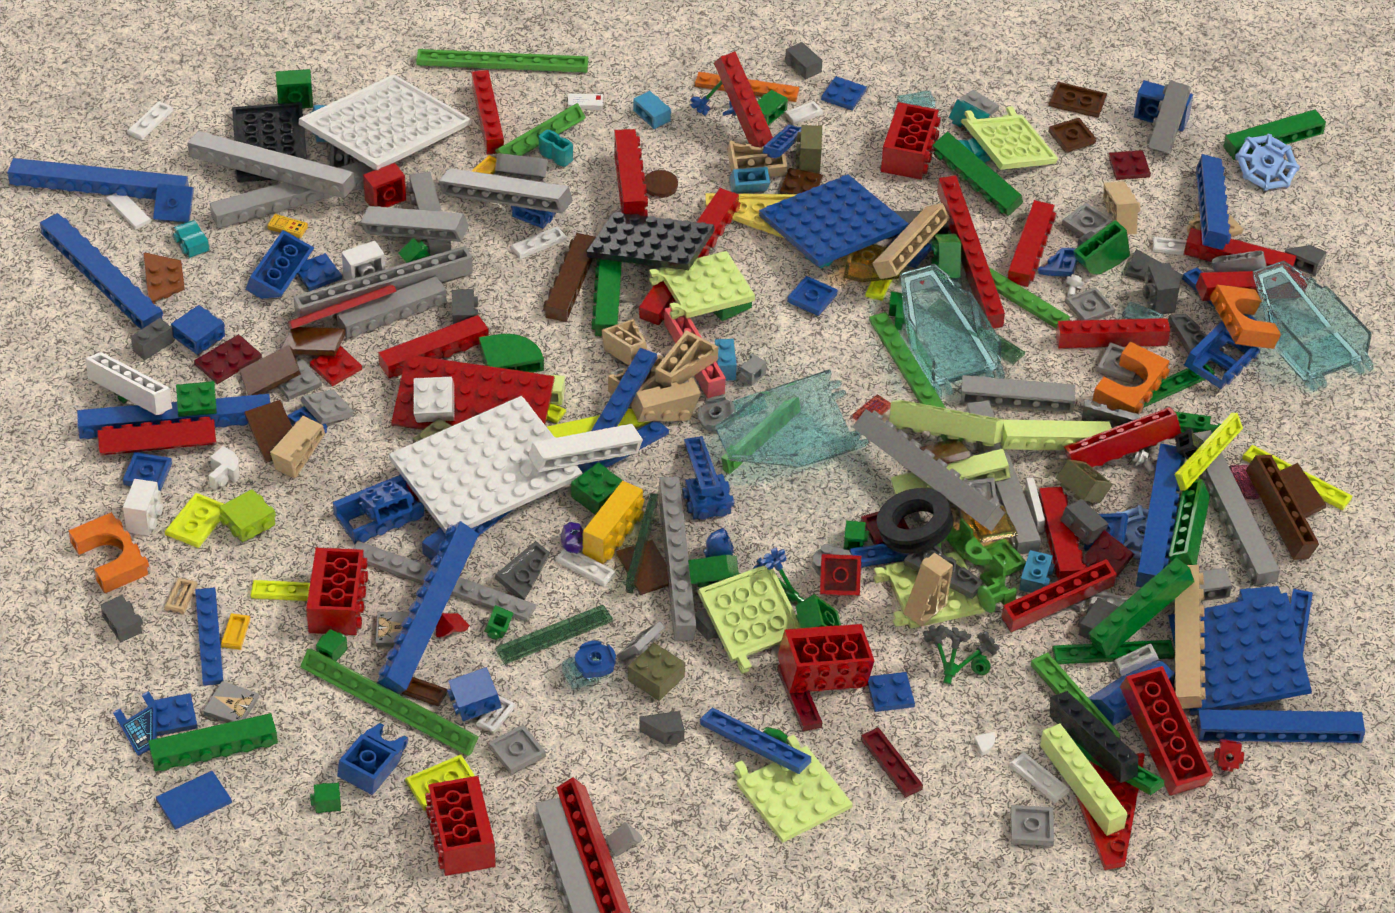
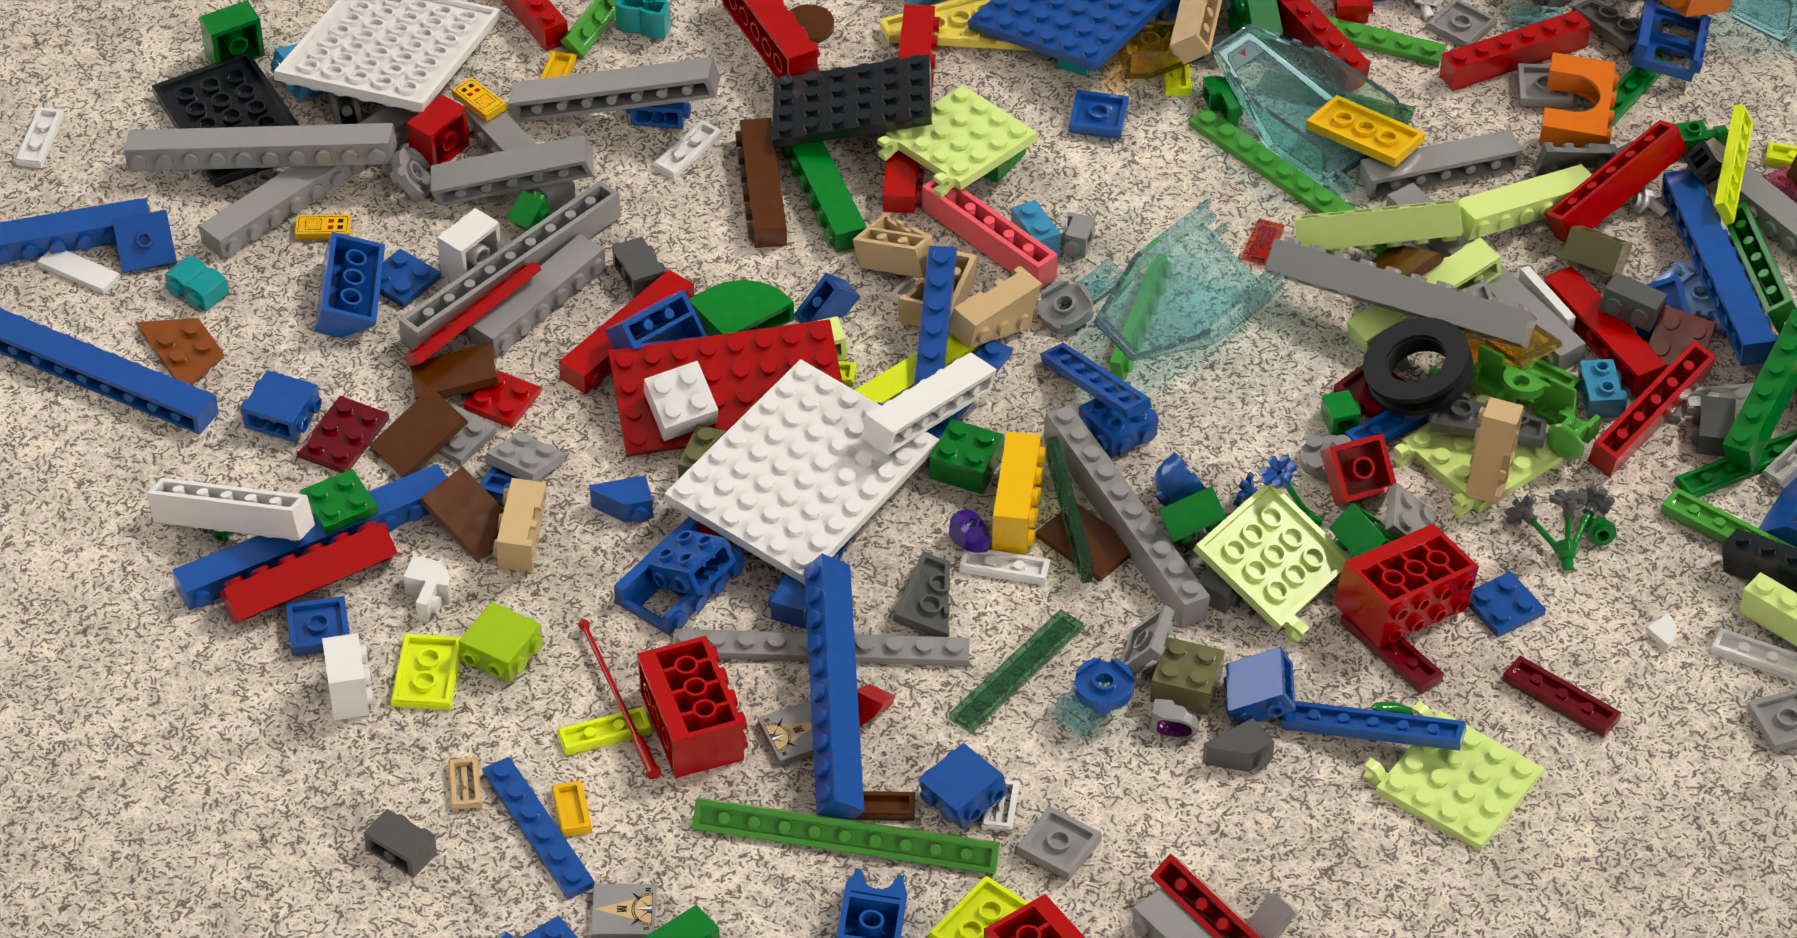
camera: 20 degrees left, 0 degrees up
(109, 531) = (313, 726): orange arch -> none
(152, 339) = (221, 438): dark grey brick -> none
(294, 624) = (652, 770): none -> red piece
(332, 645) = (722, 782): green brick -> none
(348, 206) = (411, 173): none -> light grey plate
(372, 450) = (623, 499): none -> blue slope
(420, 172) = (479, 99): none -> yellow tile
(450, 347) = (660, 322): none -> blue wedge
(498, 623) = (935, 678): green brick -> none
(521, 165) = (608, 51): light grey beam -> none
(570, 364) = (828, 299): none -> blue slope
(631, 695) = (1173, 720): none -> light grey rock
(685, 359) = (998, 244): tan wedge -> none
(696, 692) = (1260, 686): none -> brick
(856, 611) = (1405, 512): none -> light grey plate
(975, 357) = (1365, 131): none -> yellow plate

